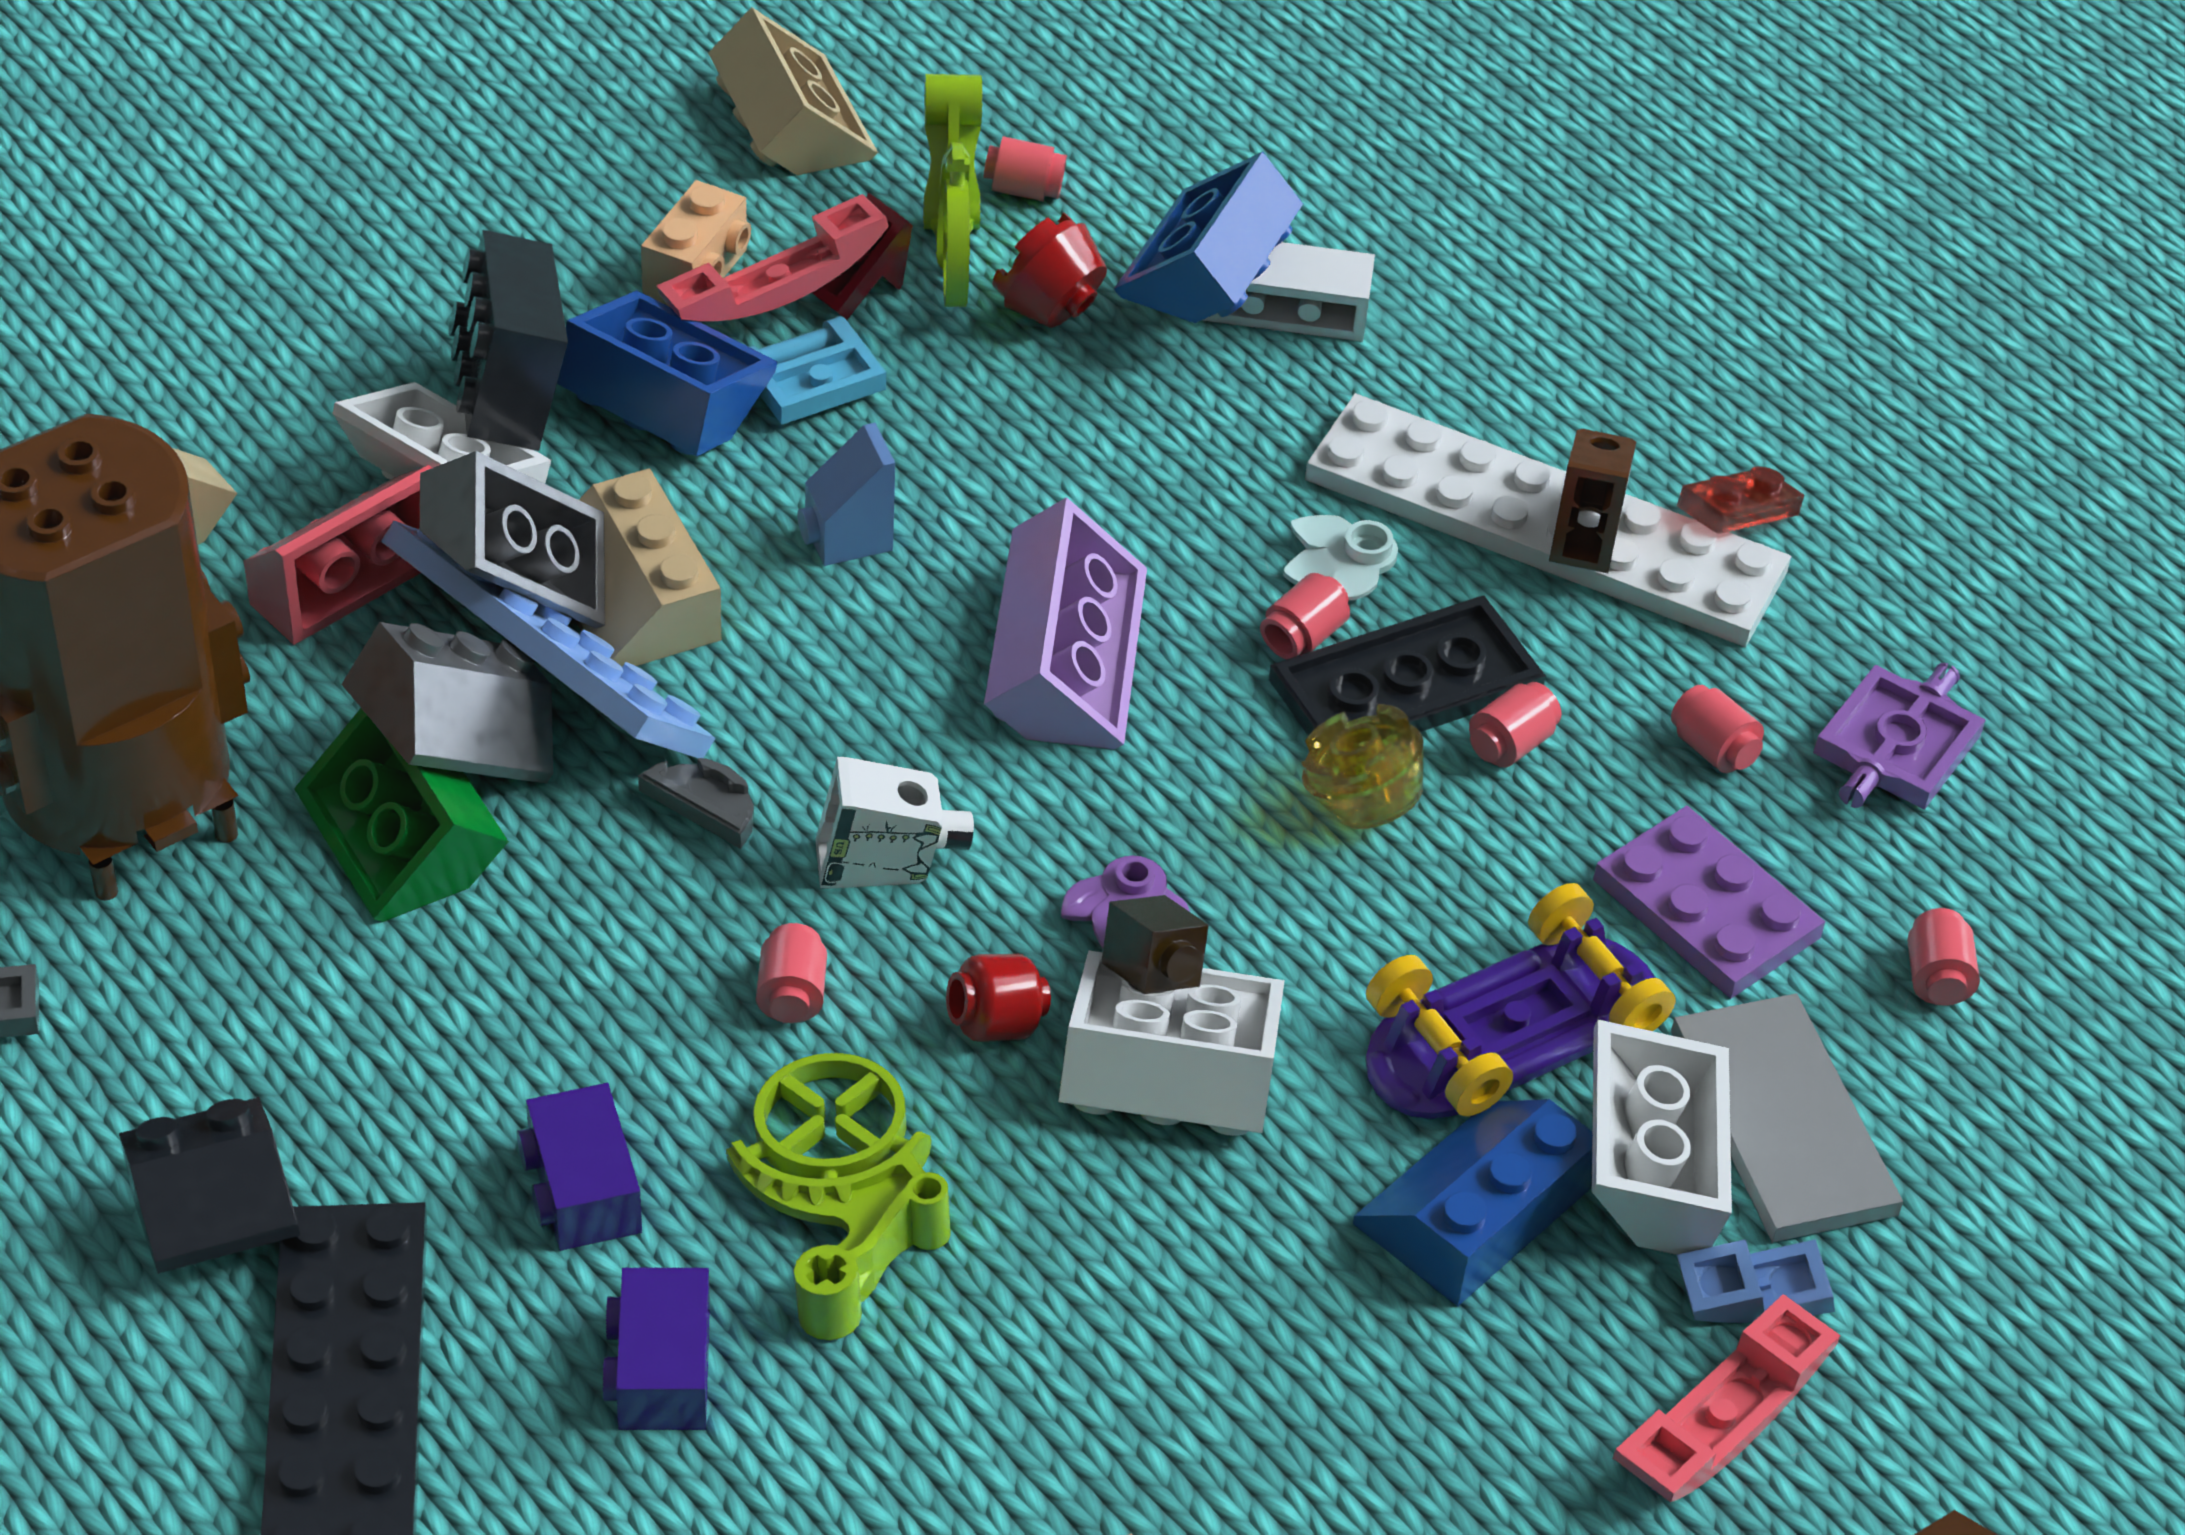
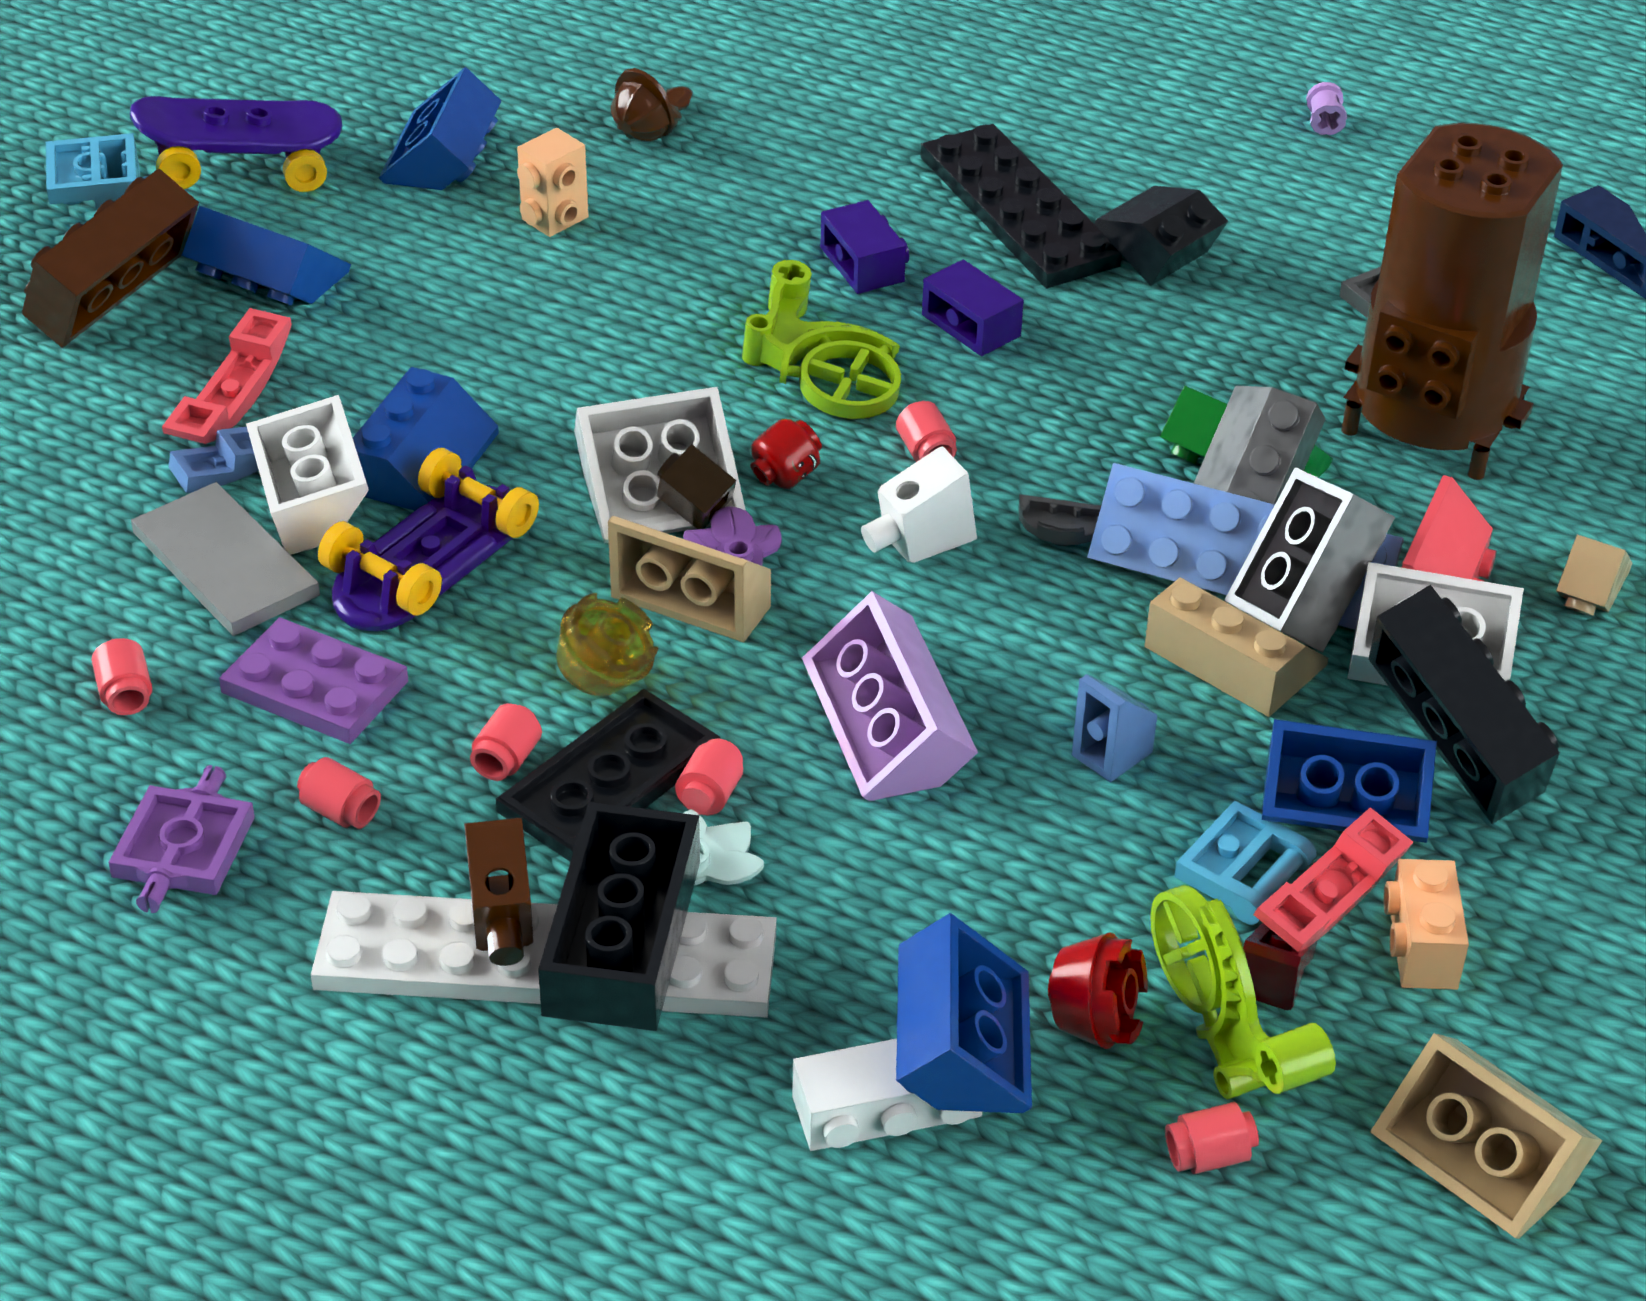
camera: 160 degrees right, 5 degrees down
(1221, 833) = (687, 580): none -> tan slope
(1479, 436) = (620, 917): none -> black brick
(1740, 500) = (369, 1004): clear red plate -> none

